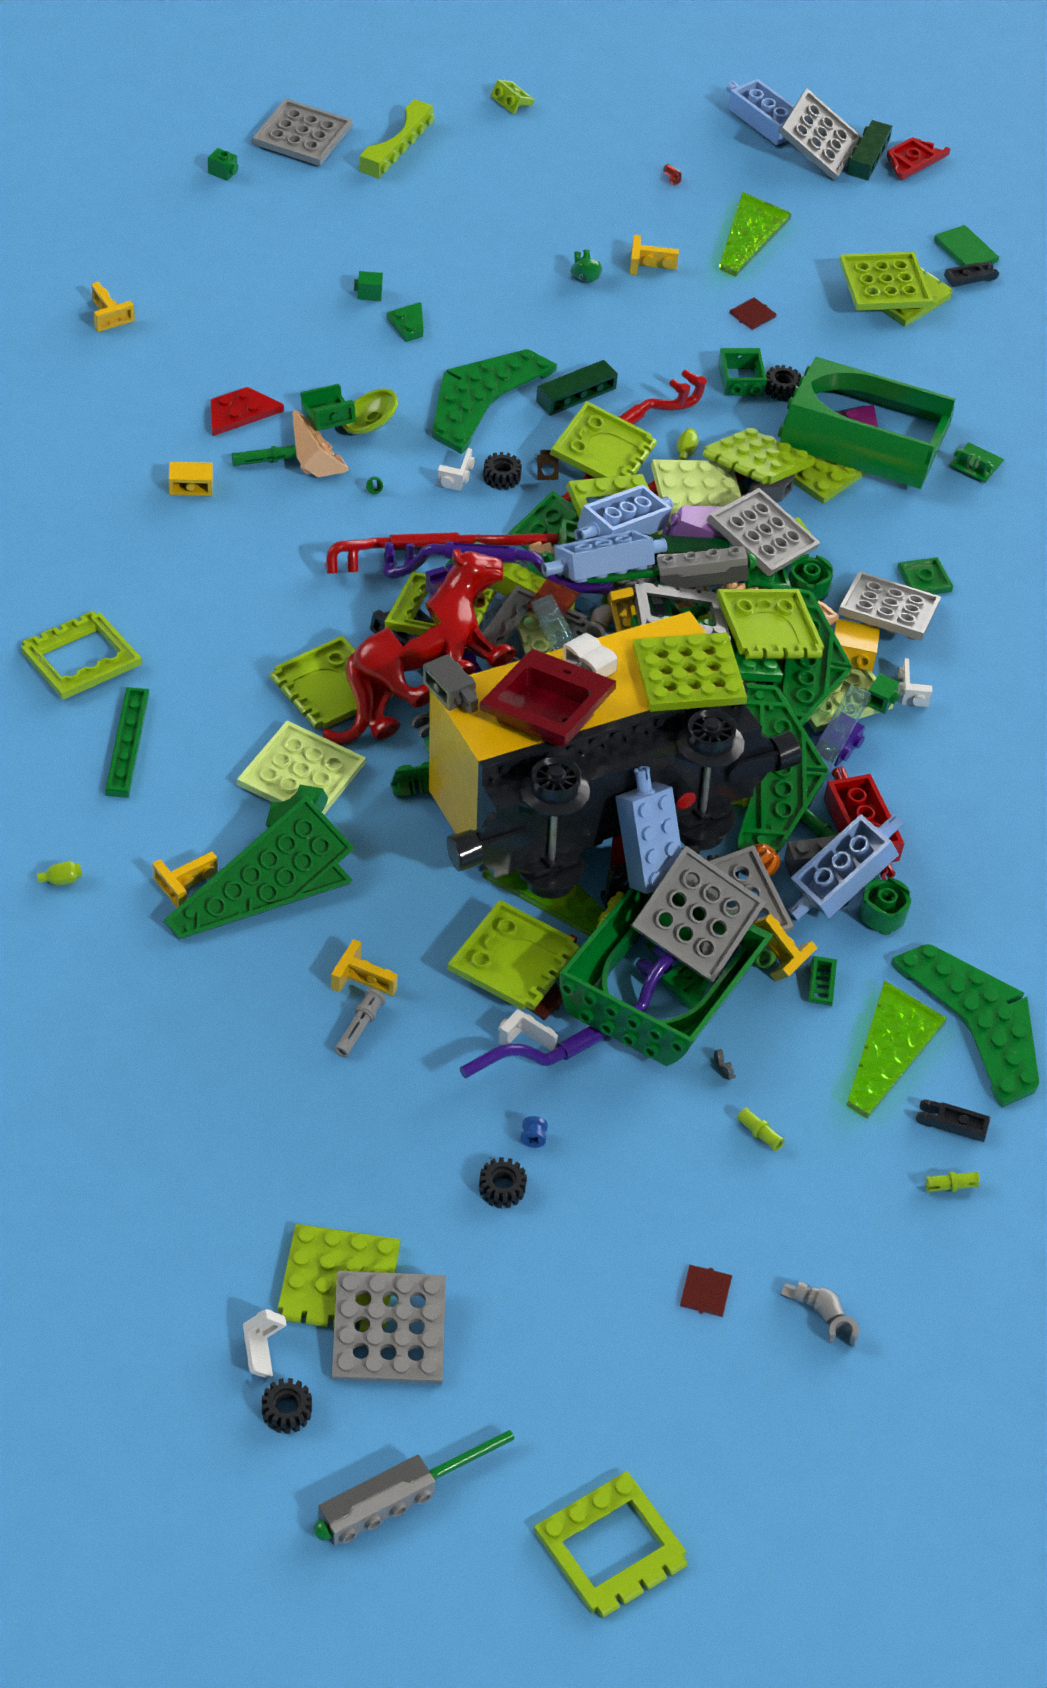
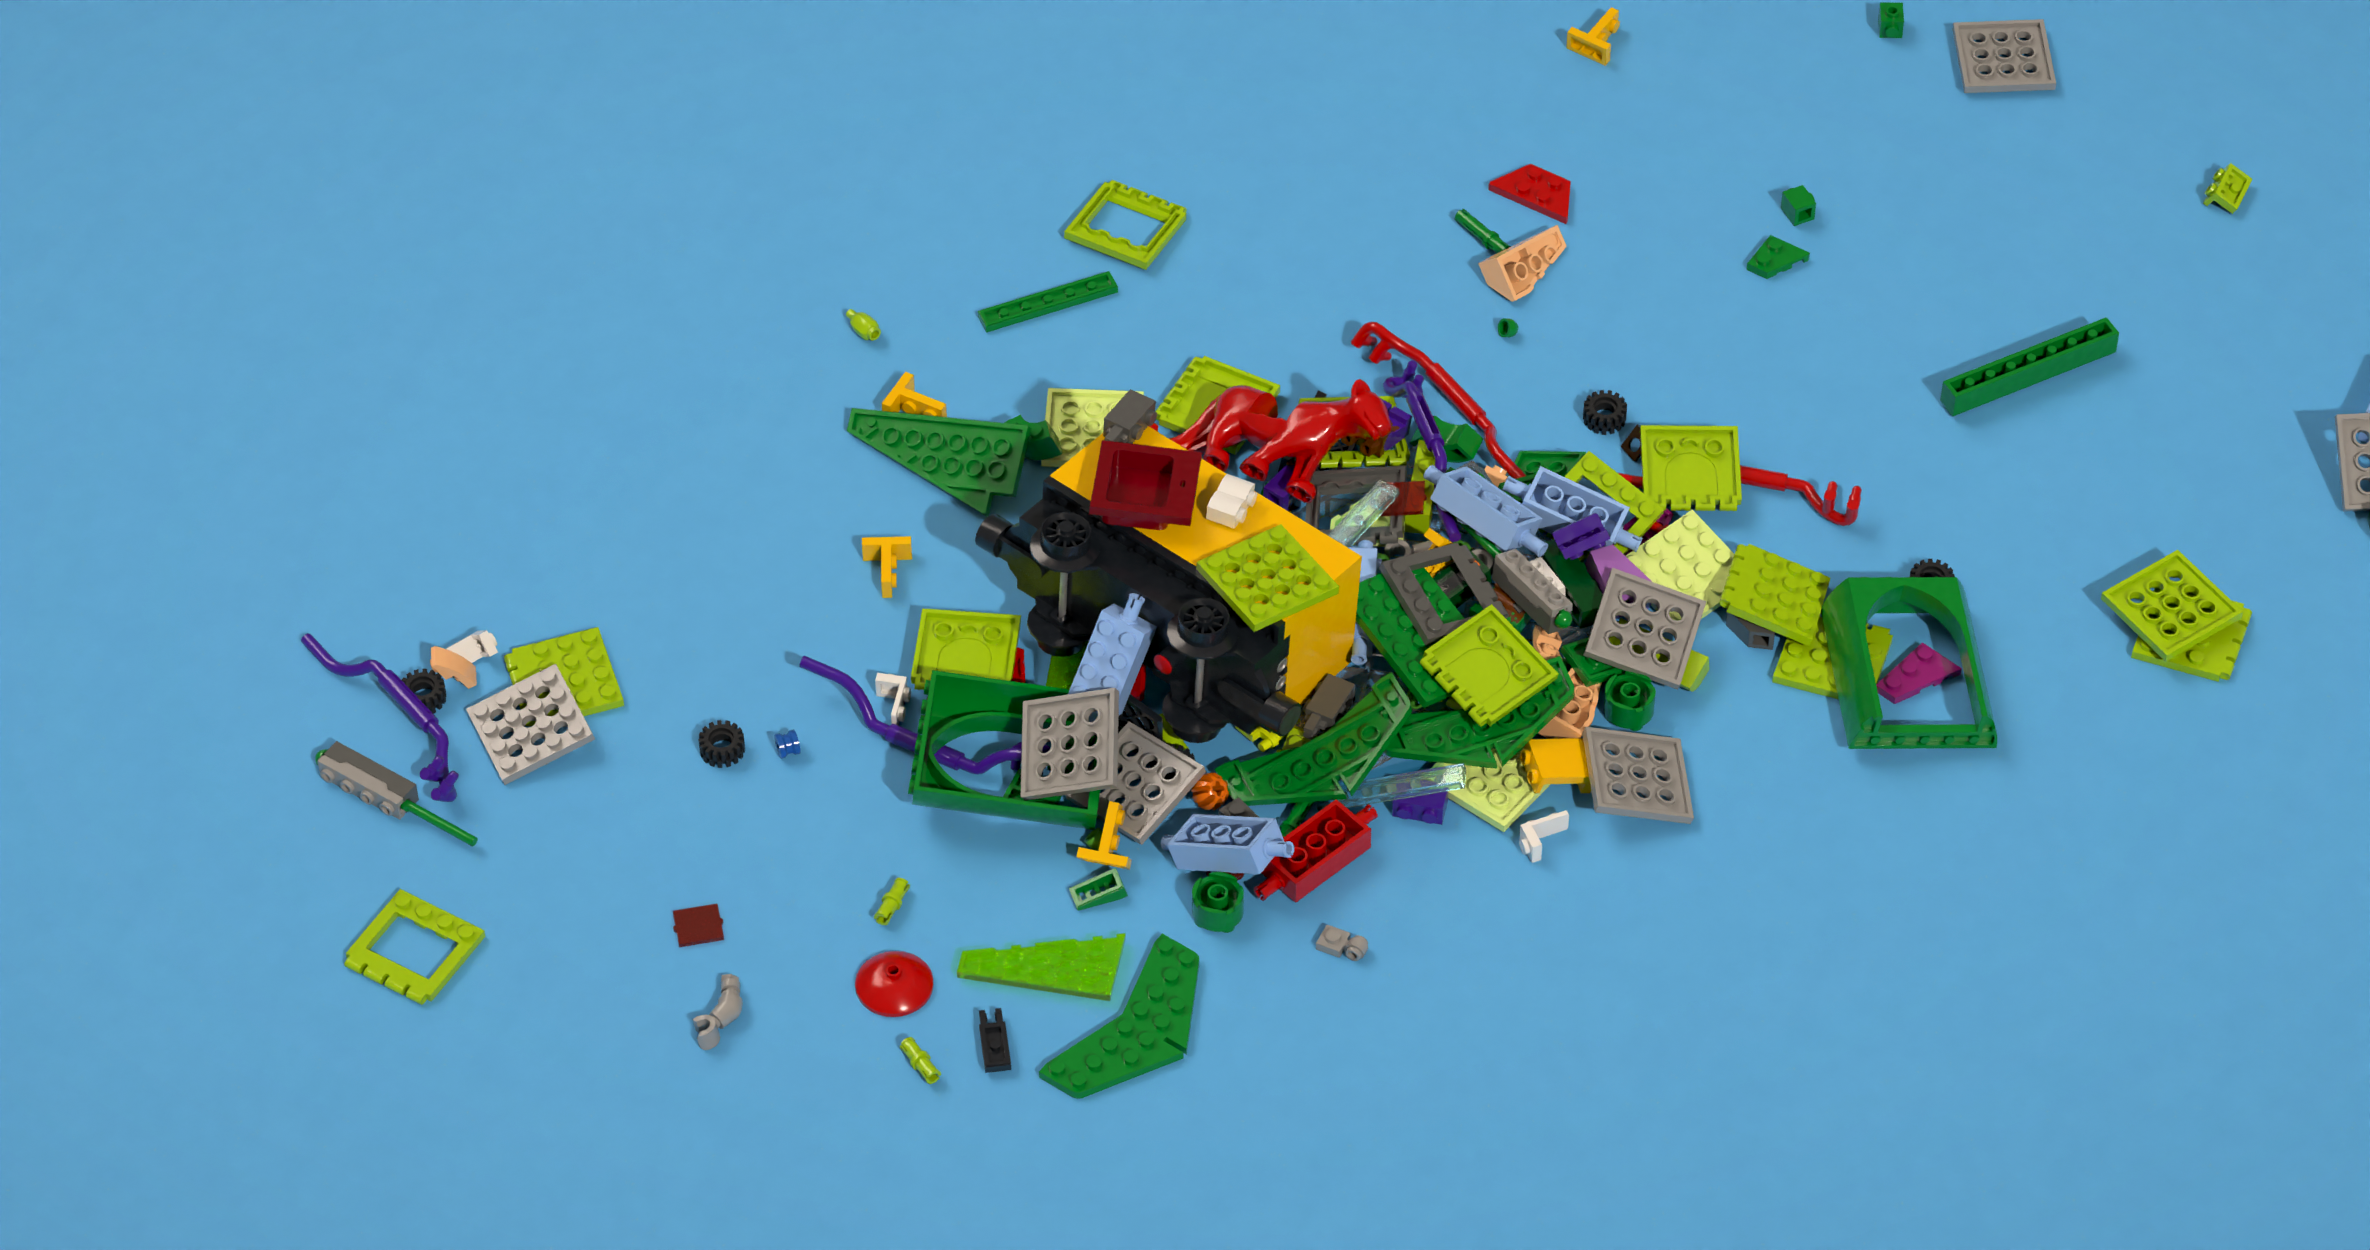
camera: 70 degrees right, 0 degrees up
(190, 478) = (1406, 196): yellow brick -> none
(279, 1363) = (451, 664): none -> light nougat slope
(304, 1419) = (410, 703): none -> dark purple piece
(327, 407) = (1581, 249): green panel -> none
(363, 1015) = (842, 583): light grey pin -> none
(372, 411) = (1598, 280): lime dish -> none
(379, 157) = (2104, 131): lime arch -> none
(455, 478) = (1575, 383): white bracket -> none
(473, 387) = (1725, 349): green wing -> none
(576, 387) = (1778, 420): dark green brick -> none
(585, 268) = (1973, 355): green piece -> none
(617, 248) = (2029, 366): none -> green brick
(651, 256) = (2043, 392): yellow bracket -> none
(668, 517) = (1581, 536): none -> dark purple bracket
(674, 174) = (2217, 373): clear red arm -> none
(687, 443) = (1767, 538): lime plant -> none
(725, 1068) = (956, 846): dark grey piece -> none
(750, 359) = (1923, 520): green window -> none
(751, 230) = (2173, 468): clear neon green wing -> none
(753, 313) = (2035, 521): clear red piece -> none
(849, 1178) = (894, 993): none -> red dish
(883, 693) = (1498, 806): green brick -> none
(925, 575) = (1722, 799): green tile -> none
(954, 854) = (1335, 941): none -> light grey plate
(965, 246) = (2319, 666): green tile -> none
(971, 274) = (2272, 683): black hinge -> none
(976, 462) = (1942, 785): green hinge -> none

